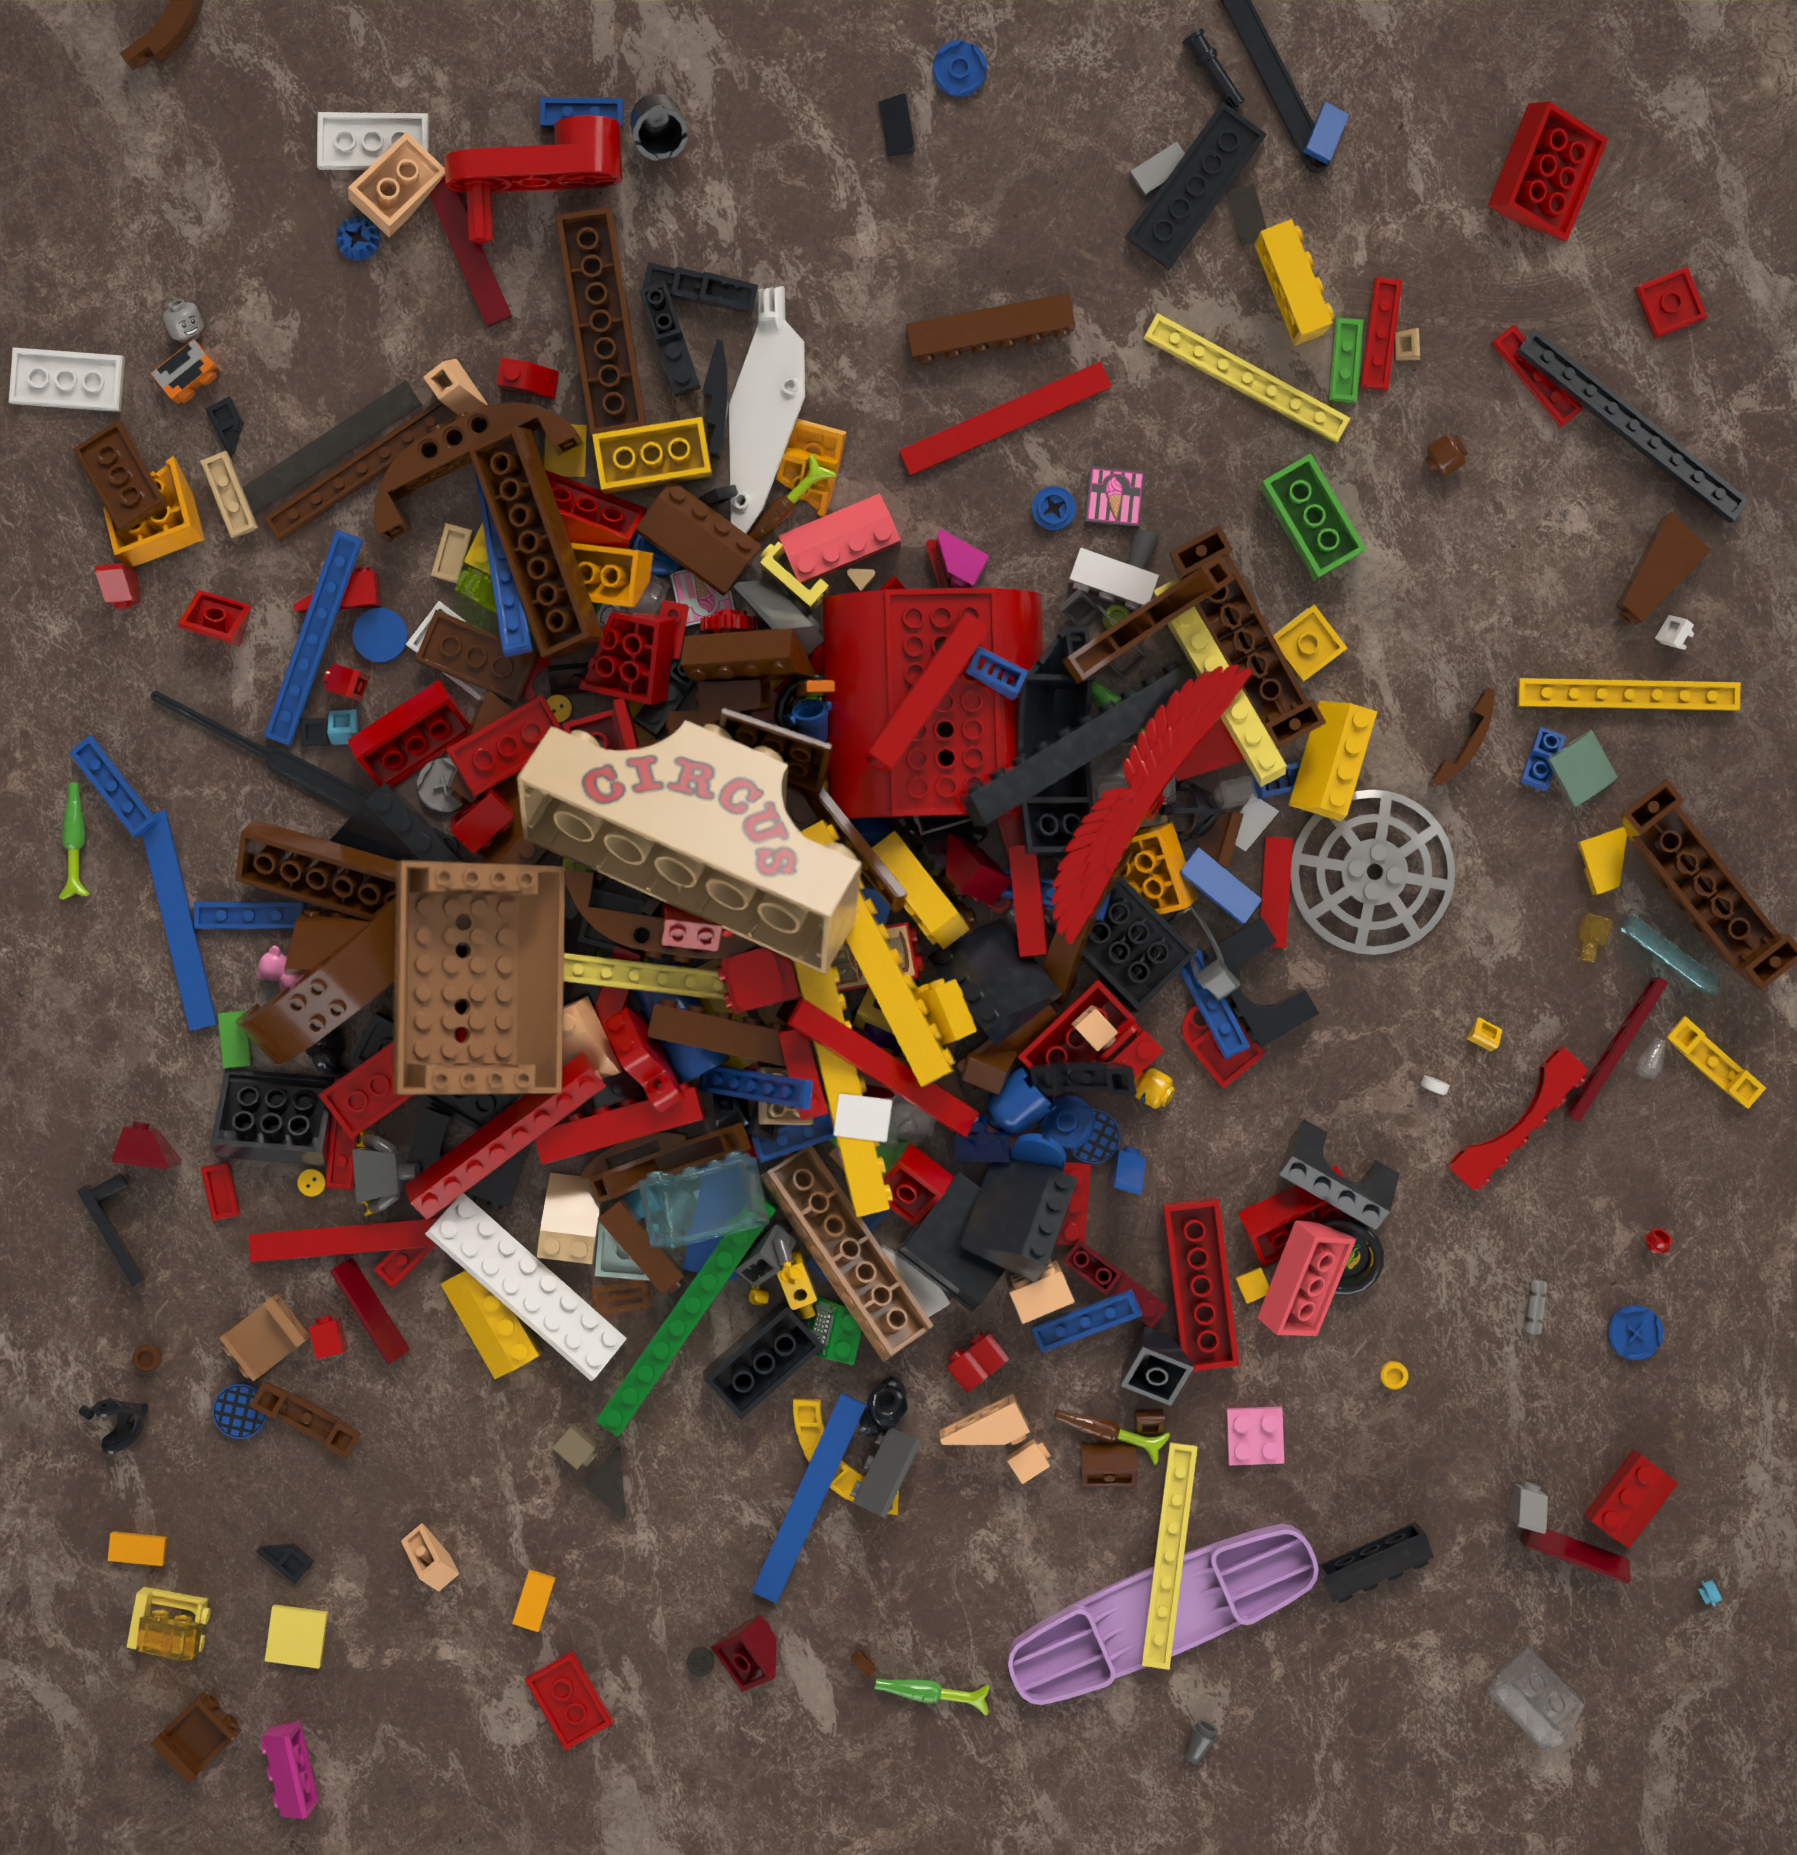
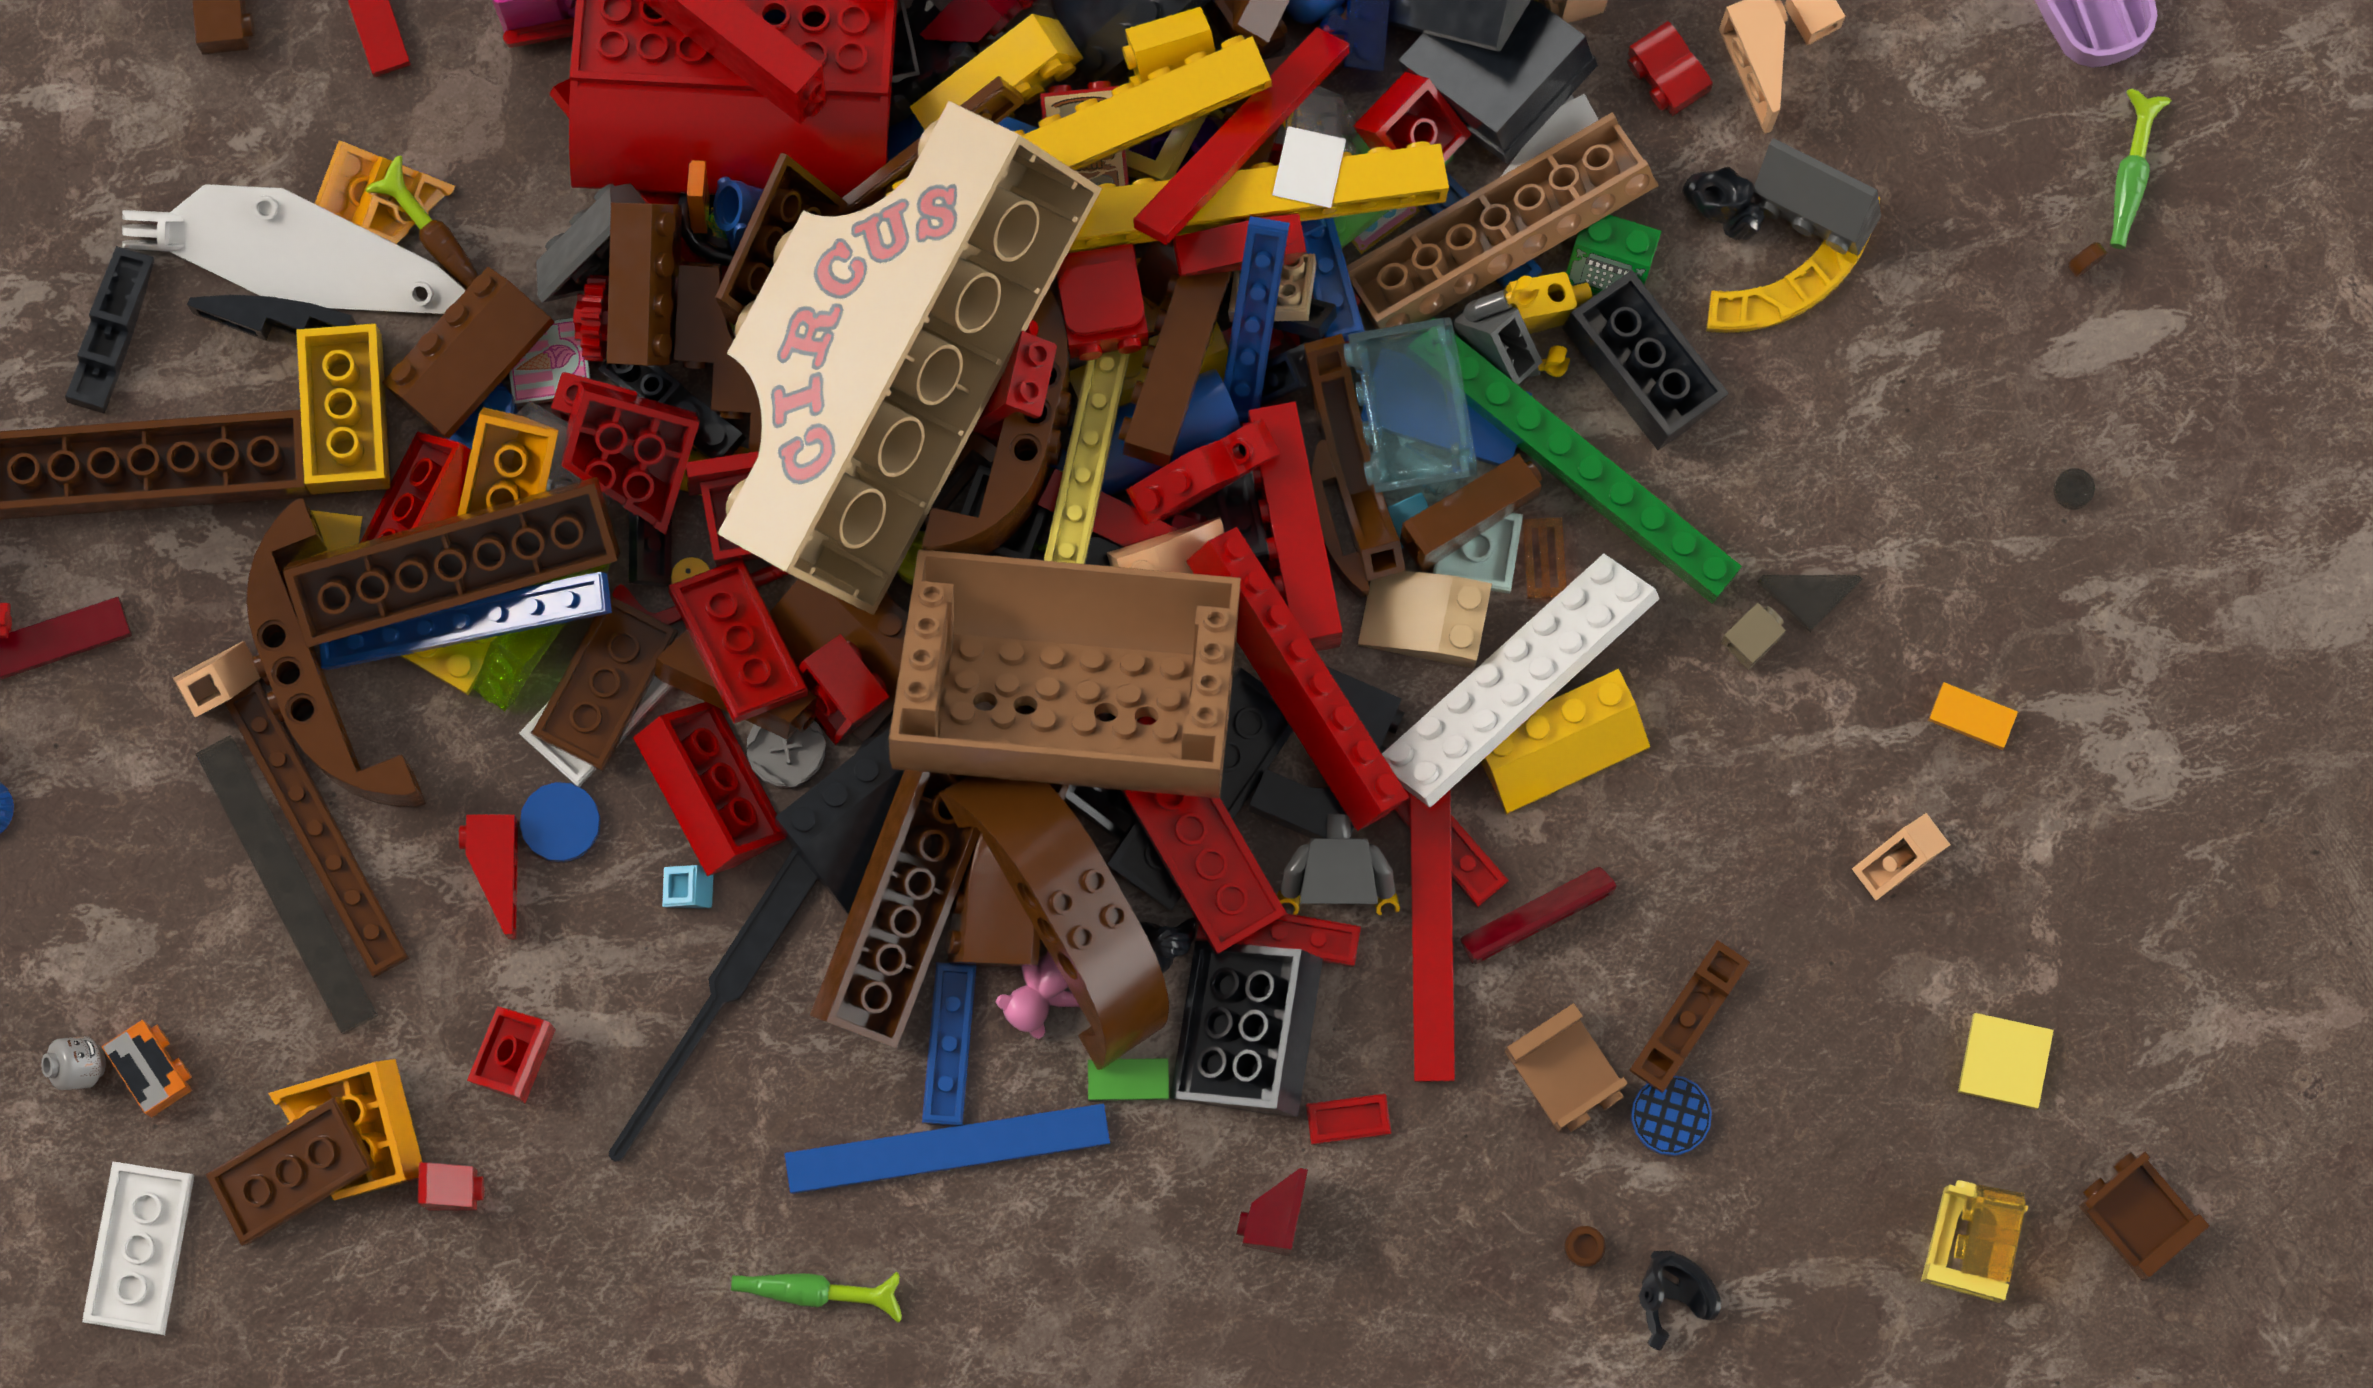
camera: 85 degrees left, 10 degrees down
(92, 1200) = (1346, 1303): black piece -> none
(113, 786) = (742, 1221): blue plate -> none
(137, 1548) = (1863, 1283): light orange tile -> none
(226, 422) = (227, 1019): black tile -> none
(229, 494) = (333, 1018): tan tile -> none
(287, 1559) = (1893, 1065): black tile -> none
(290, 1770) = (2199, 1081): dark pink slope -> none
(312, 1182) = (1345, 984): yellow tile -> none
(313, 637) = (554, 908): blue tile -> none
(314, 732) = (691, 928): black tile -> none
(328, 1336) = (1571, 976): red brick -> none
(346, 682) = (622, 870): red slope -> none
(451, 553) = (452, 711): tan tile -> none
(527, 378) = (212, 581): red slope -> none
(569, 1700) = (2119, 678): red tile -> none
(670, 339) = (181, 375): black slope -> none
(719, 495) = (410, 321): black tile -> none
(748, 1653) = (2065, 416): dark red slope -> none
(809, 1497) = (1847, 315): blue tile -> none
(810, 599) = (529, 243): light yellow panel -> none
(840, 539) = (489, 164): coral slope -> none
(861, 578) = (548, 139): tan slope -> none

